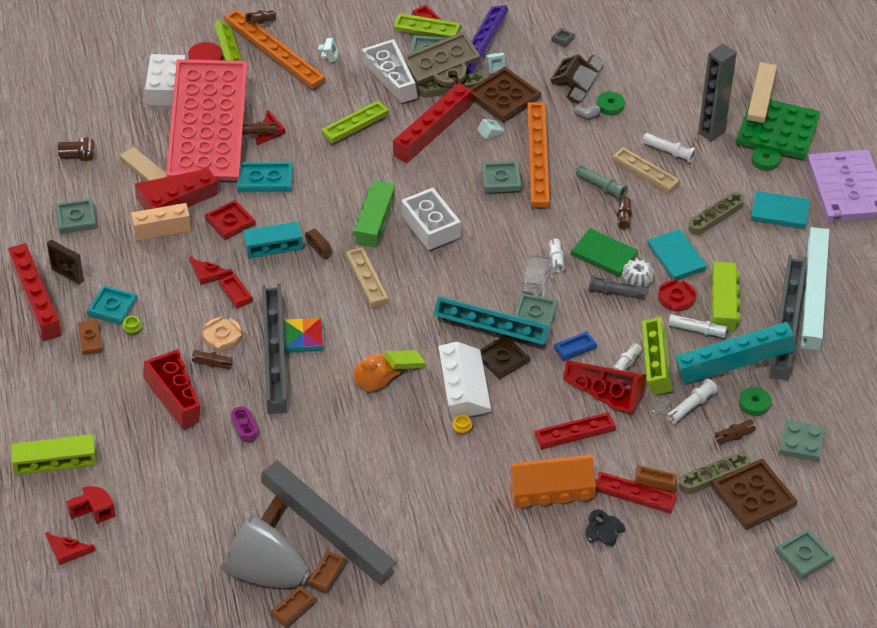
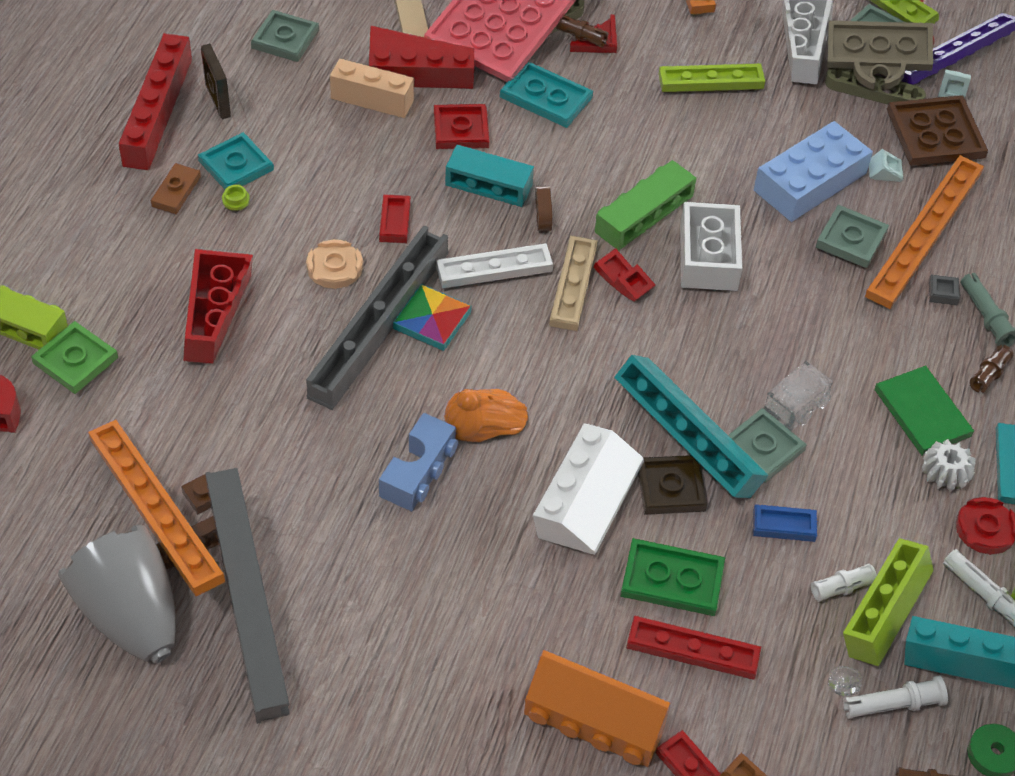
camera: 30 degrees right, 5 degrees up
(117, 458) = (74, 357): none -> bright green plate
(208, 272) = (382, 178): red tile -> none
(212, 359) = (293, 291): reddish brown pin -> none
(240, 505) = (157, 508): none -> orange plate
(246, 427) = (260, 398): magenta plate -> none
(253, 491) = (197, 494): none -> reddish brown plate
(292, 606) = (115, 685): dark orange plate -> none
(316, 289) = (494, 265): none -> white plate
(326, 572) = (197, 661): dark orange plate -> none
(360, 401) = (409, 482): none -> medium blue arch
(395, 261) = (627, 280): none -> red slope
(405, 359) = (531, 418): lime tile -> none
(432, 123) = (787, 127): red brick -> none
(453, 149) = (812, 171): none -> light blue brick
(462, 424) = (542, 551): yellow plate -> none
(538, 402) = (673, 577): none -> green tile
(556, 255) = (850, 380): white pin -> none
(569, 182) = (944, 289): none -> dark grey tile
(608, 285) = (893, 461): dark grey pin -> none
(612, 386) = (794, 611): red wedge -> none

